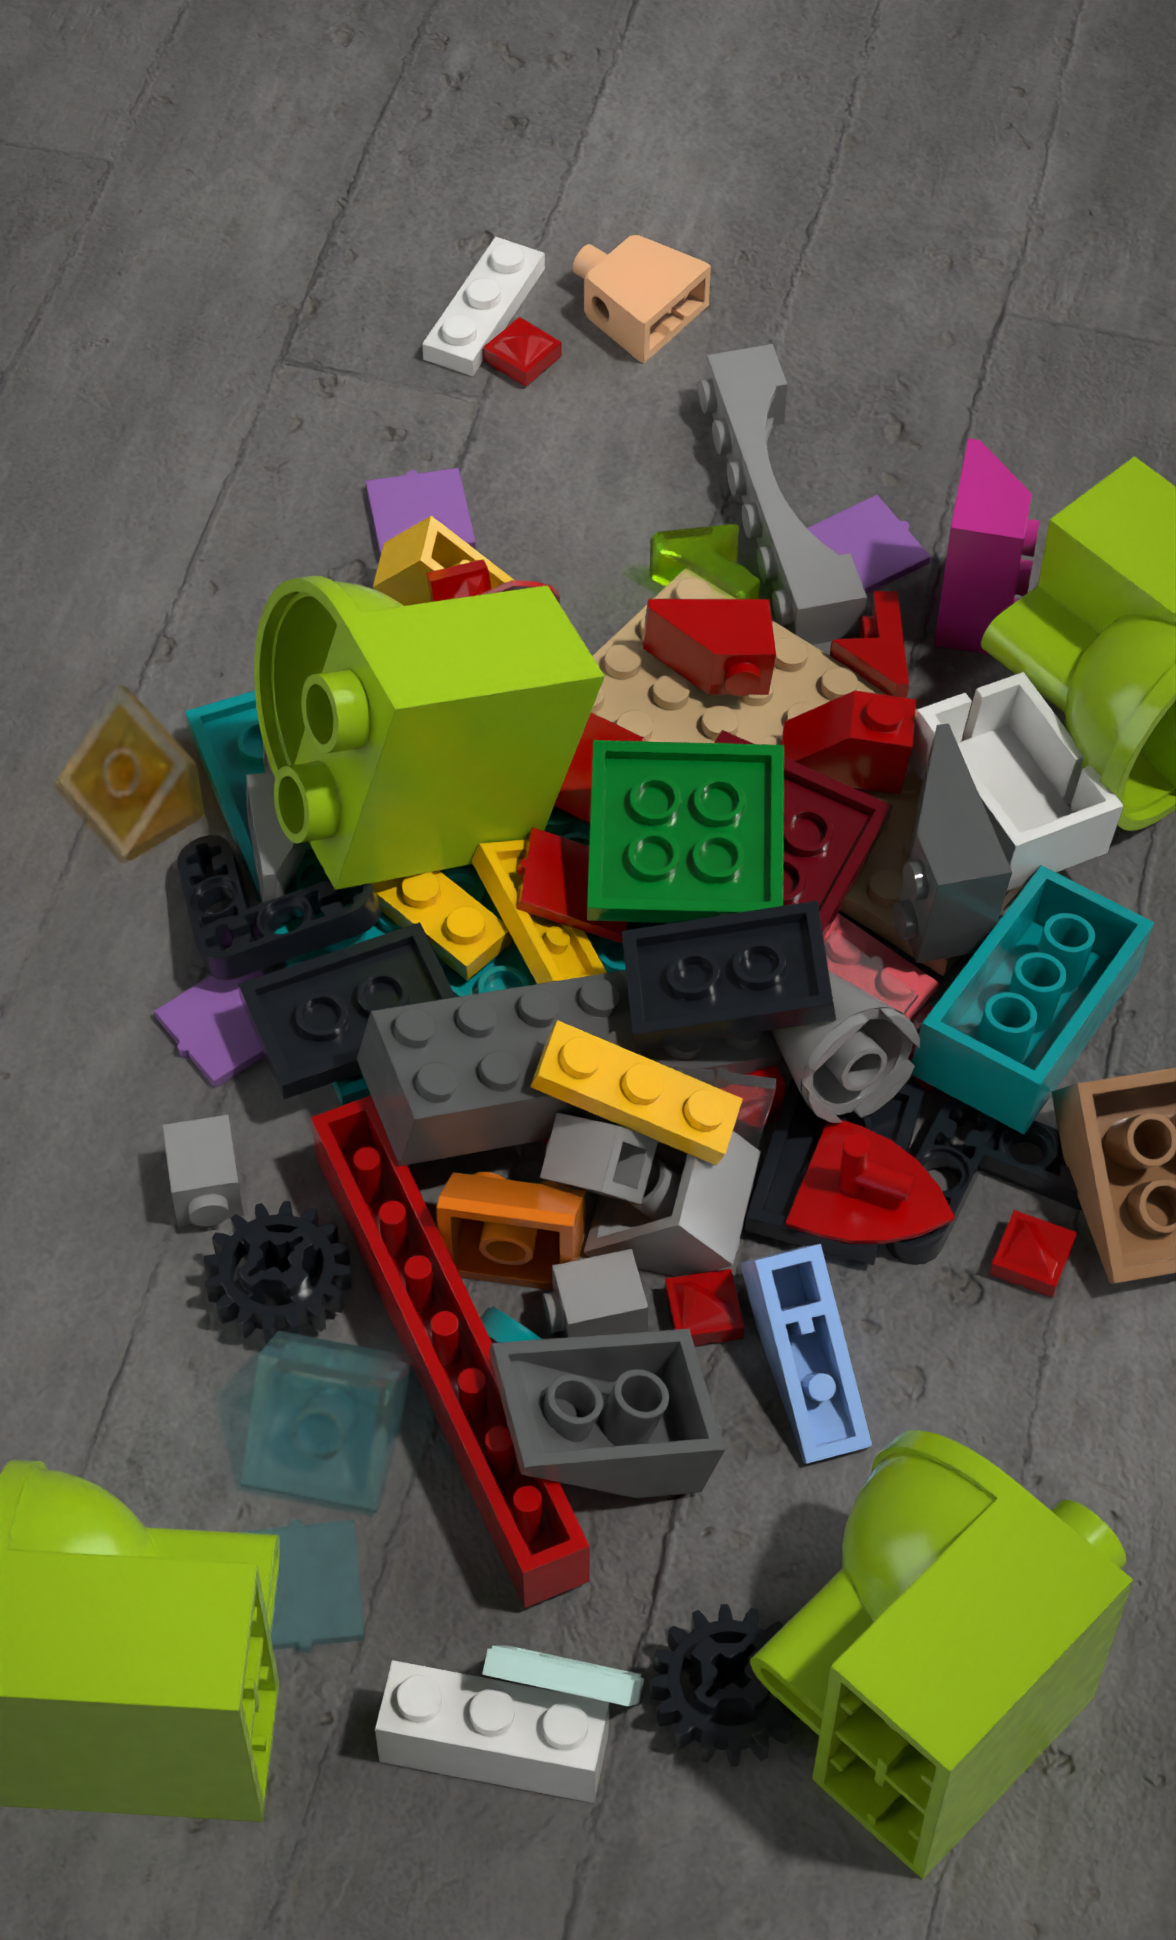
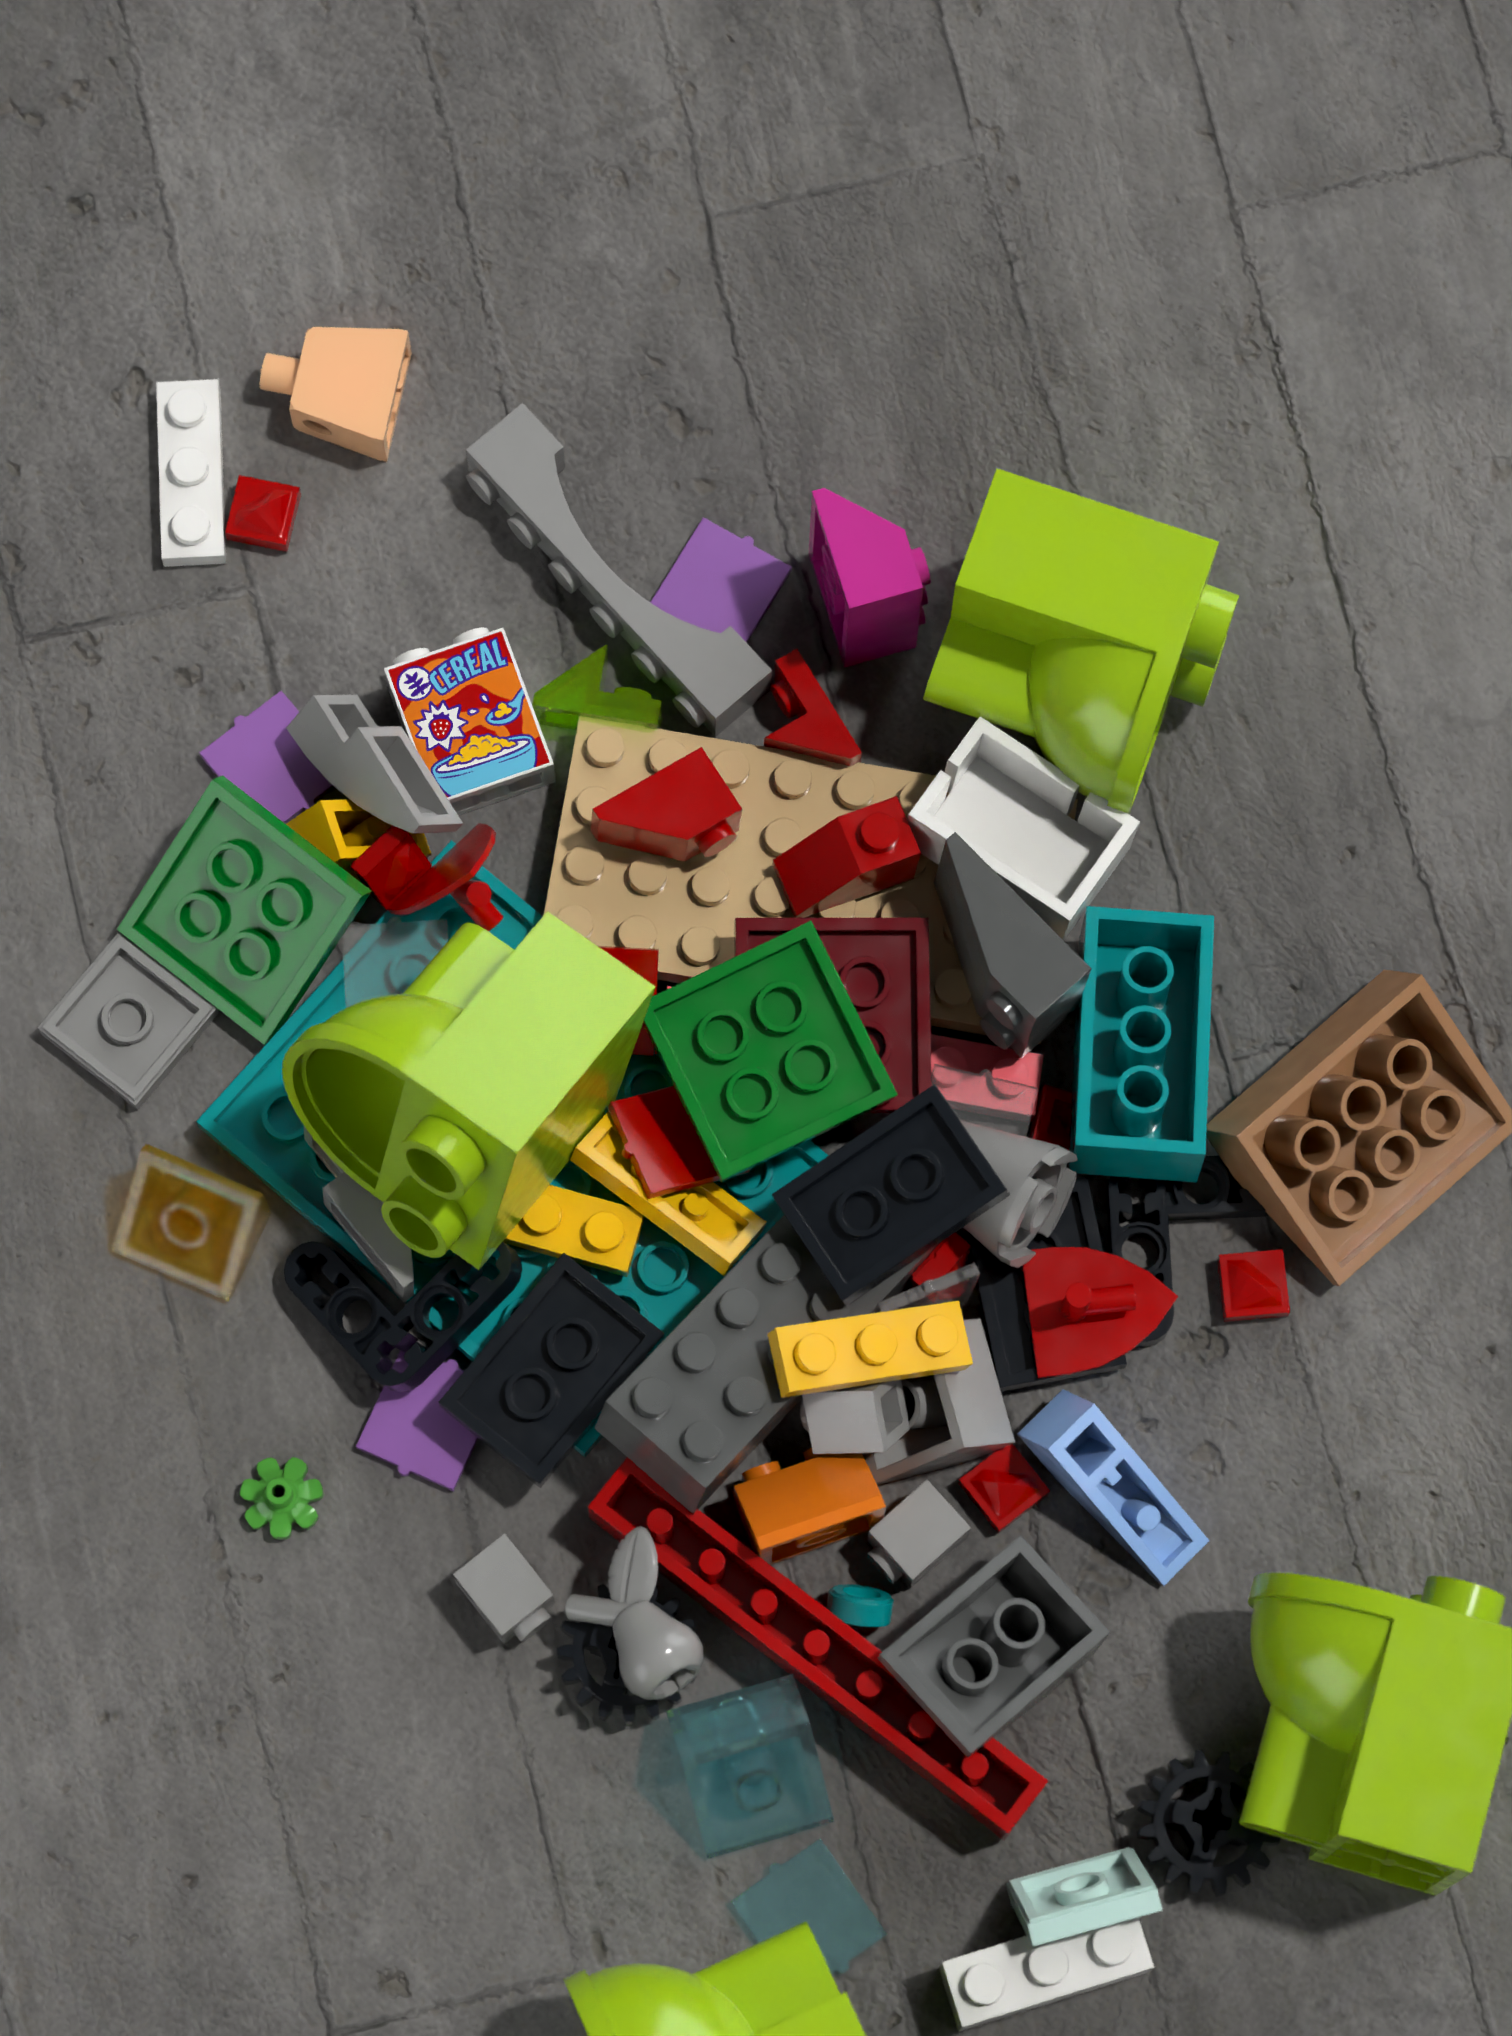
camera: 30 degrees left, 20 degrees up
(66, 1019) = (291, 1506): none -> bright green plant
(183, 631) = (128, 1020): none -> light grey tile
(293, 1254) = (652, 1647): none -> light grey piece
(329, 532) = (243, 909): none -> green plate
(492, 518) = (372, 764): none -> light grey slope
(594, 540) = (471, 719): none -> brick

